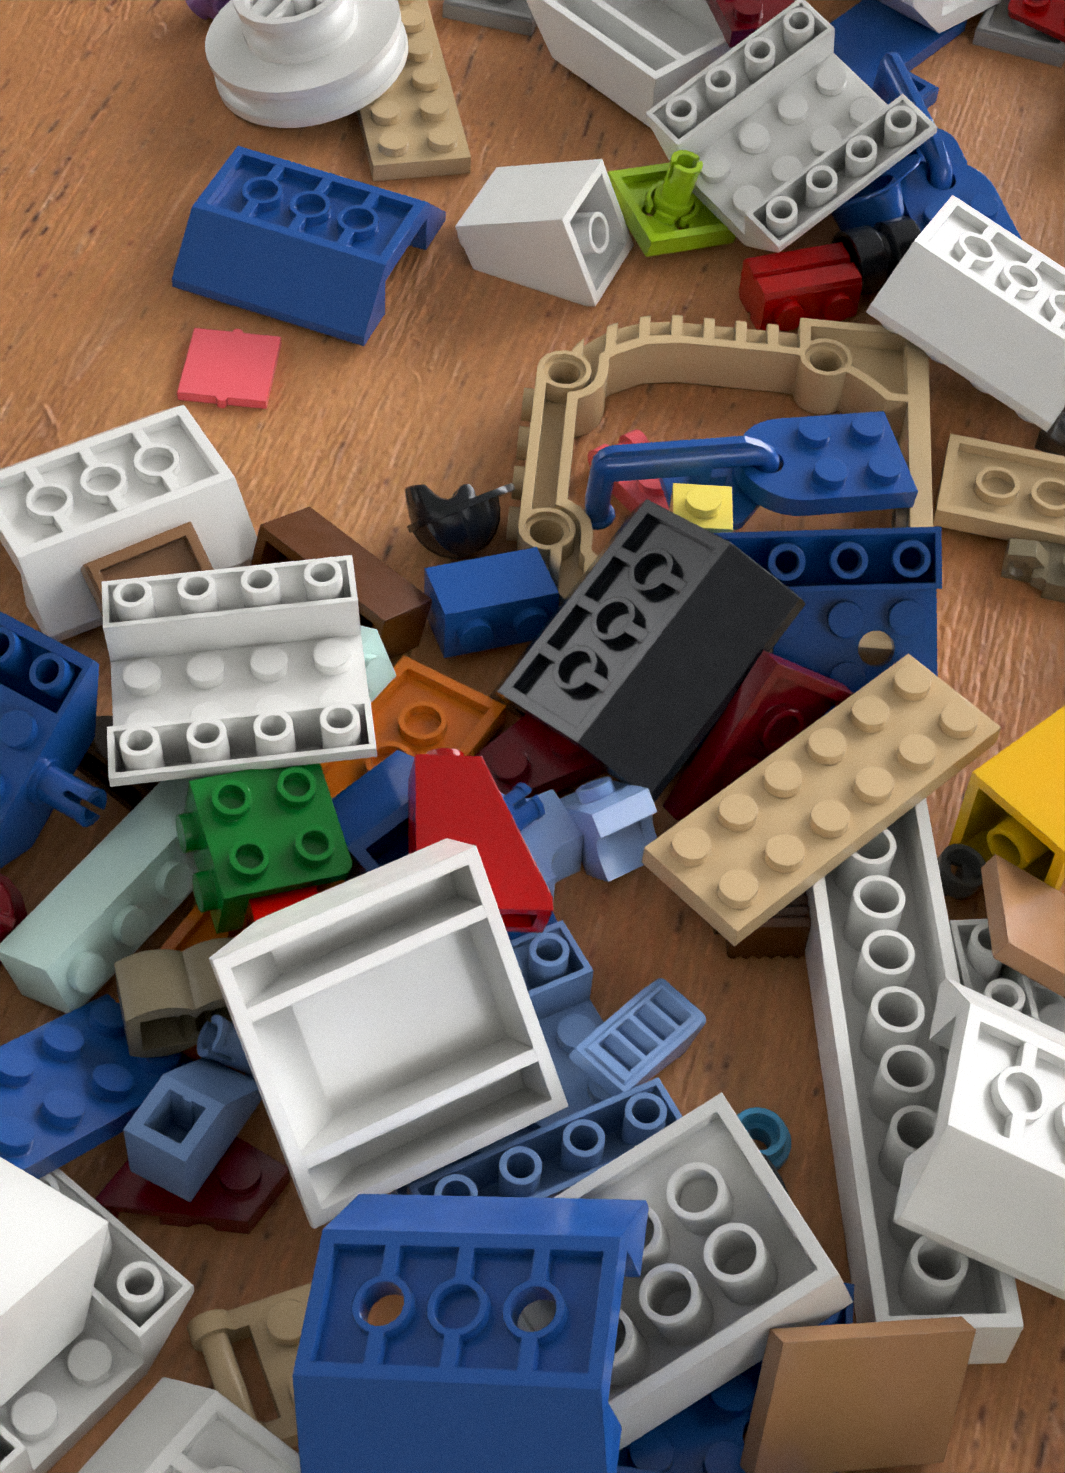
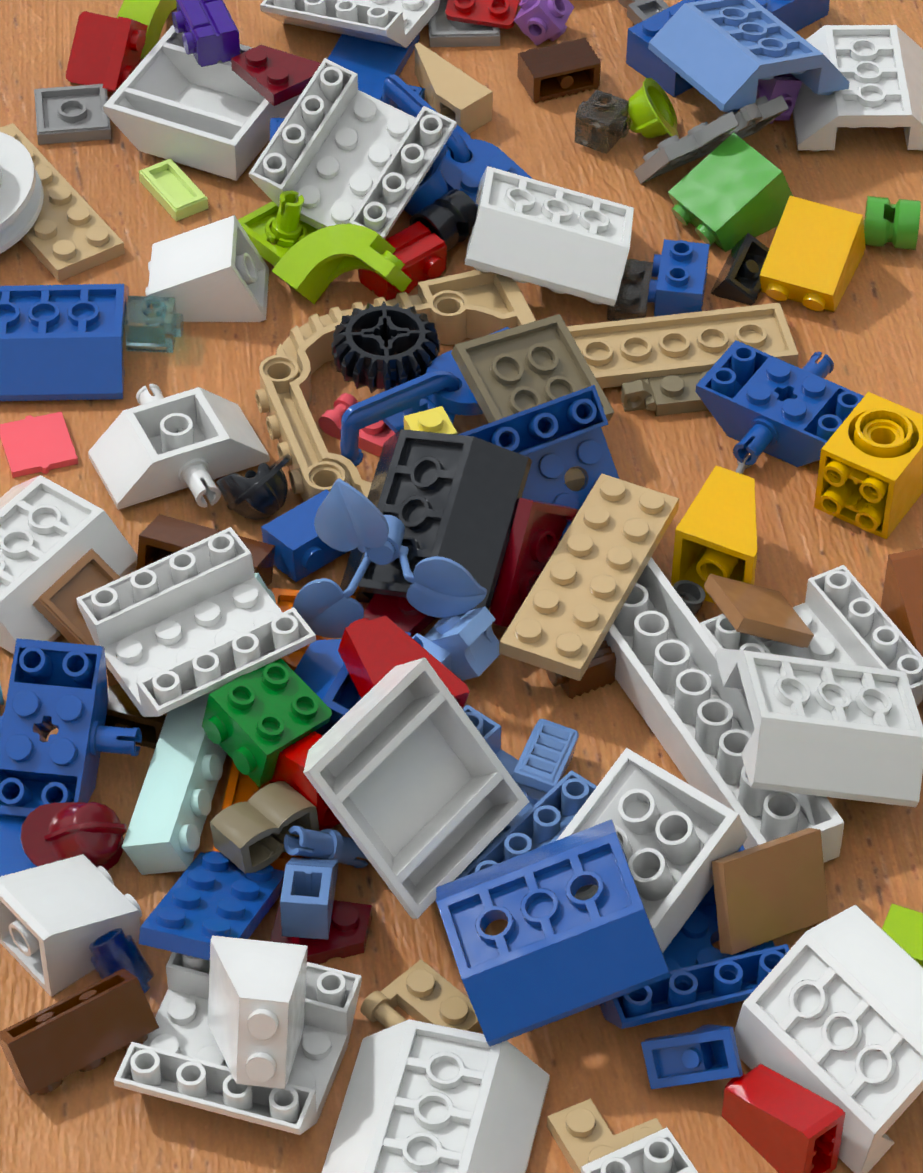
camera: 20 degrees left, 5 degrees down
(388, 427) = (174, 447): none -> white slope
(446, 264) = (152, 324): none -> clear light blue brick
(485, 609) = (352, 521): none -> medium blue plant
(568, 115) = (173, 189): none -> yellowish green tile
(706, 383) = (384, 346): none -> black gear
(709, 246) = (333, 251): none -> lime arch
(876, 474) = (525, 368): none -> dark tan plate
(971, 102) = (452, 90): none -> tan slope

